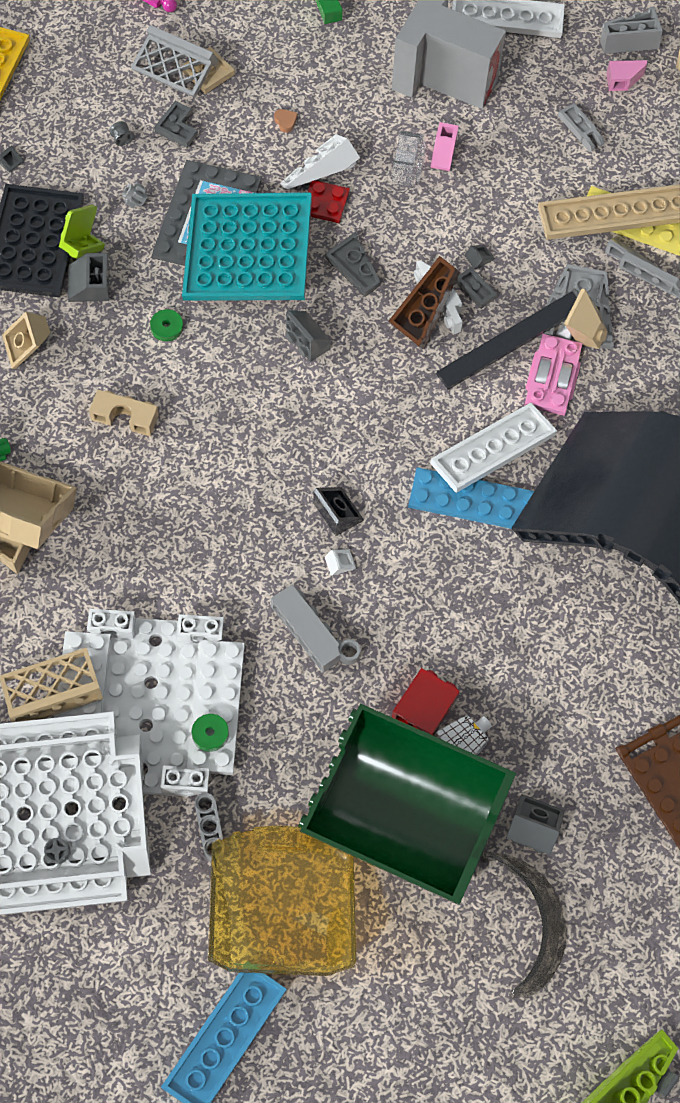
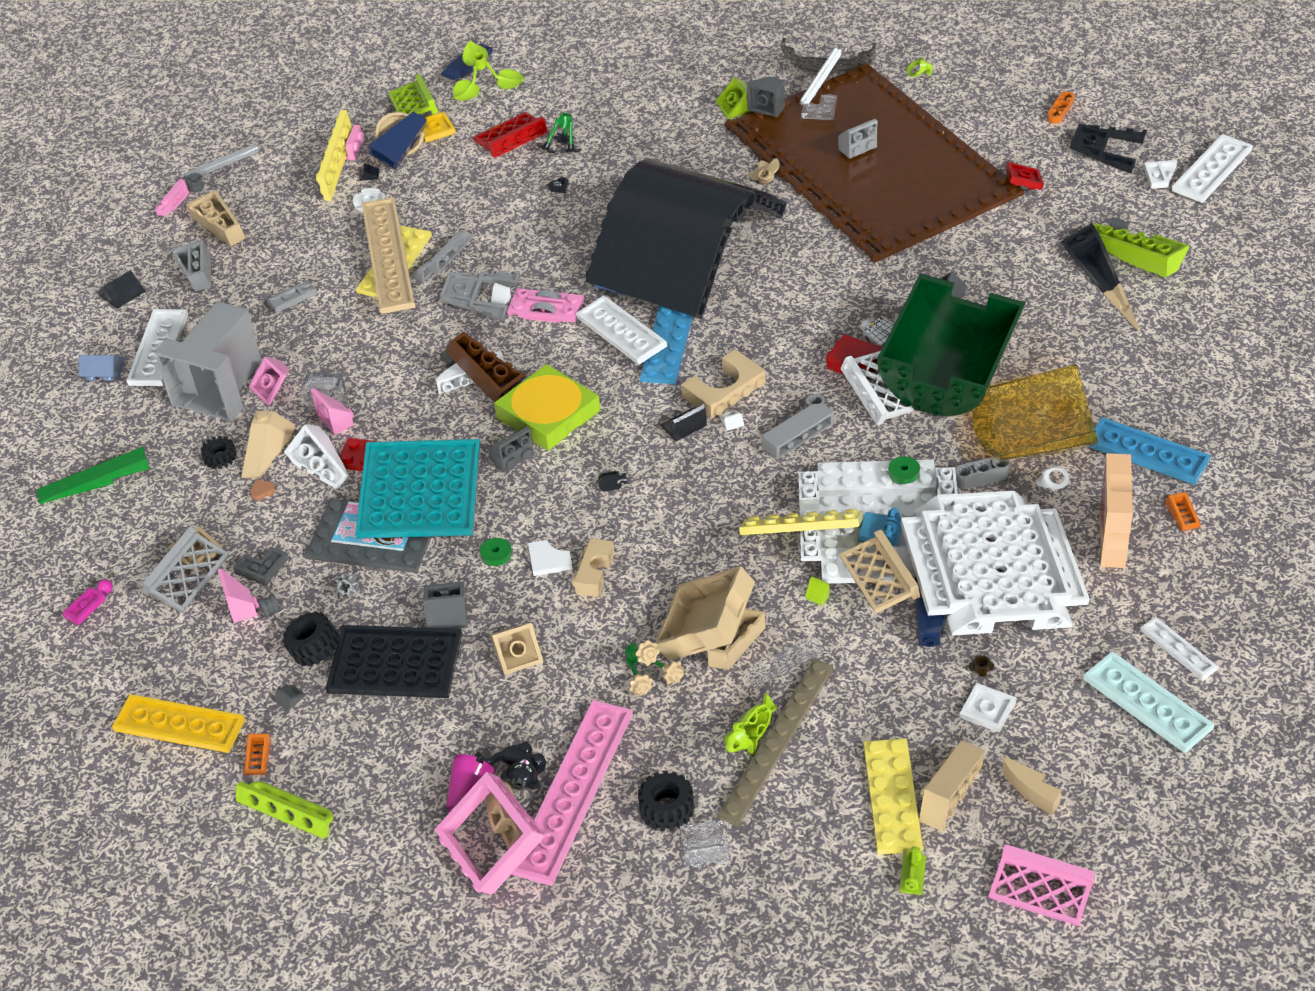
camera: 85 degrees left, 20 degrees down
(53, 849) = (1029, 539): dark grey wheel -> none
(56, 630) = (817, 591): none -> lime slope
(63, 166) = (310, 638): none -> black tyre
(76, 232) = (396, 615): lime bracket -> none
(86, 959) = (1115, 510): none -> light nougat tile
(127, 699) = (888, 524): none -> dark azure hinge
(129, 100) = (238, 598): none -> bright pink slope
(136, 1055) = (1182, 498): none -> orange slope
(143, 615) = (796, 522): none -> light yellow plate
(149, 371) = (548, 559): none -> white tile
(188, 902) = (1045, 481): none -> white piece
(250, 439) = (611, 480): none -> black arm
(340, 69) = (218, 460): none -> black tyre
(351, 116) = (266, 439): none -> tan wedge
(353, 264) = (435, 428): dark grey wing -> none
(368, 699) = (866, 390): none -> white fence
(372, 370) = (548, 405): none -> tile
(378, 167) = (332, 412): none -> bright pink slope
(401, 581) = (716, 400): none -> tan arch
(444, 146) = (299, 369): bright pink slope -> none
(445, 111) = (268, 379): none -> bright pink slope
(479, 256) = (425, 354): dark grey slope -> none
(506, 342) = (514, 326): black tile -> none
(553, 924) = (1027, 285): clear smoke windscreen -> none
(586, 322) = (502, 274): tan slope -> none
(605, 1033) = (1092, 257): none -> black plate
(624, 74) = (238, 272): bright pink slope -> none

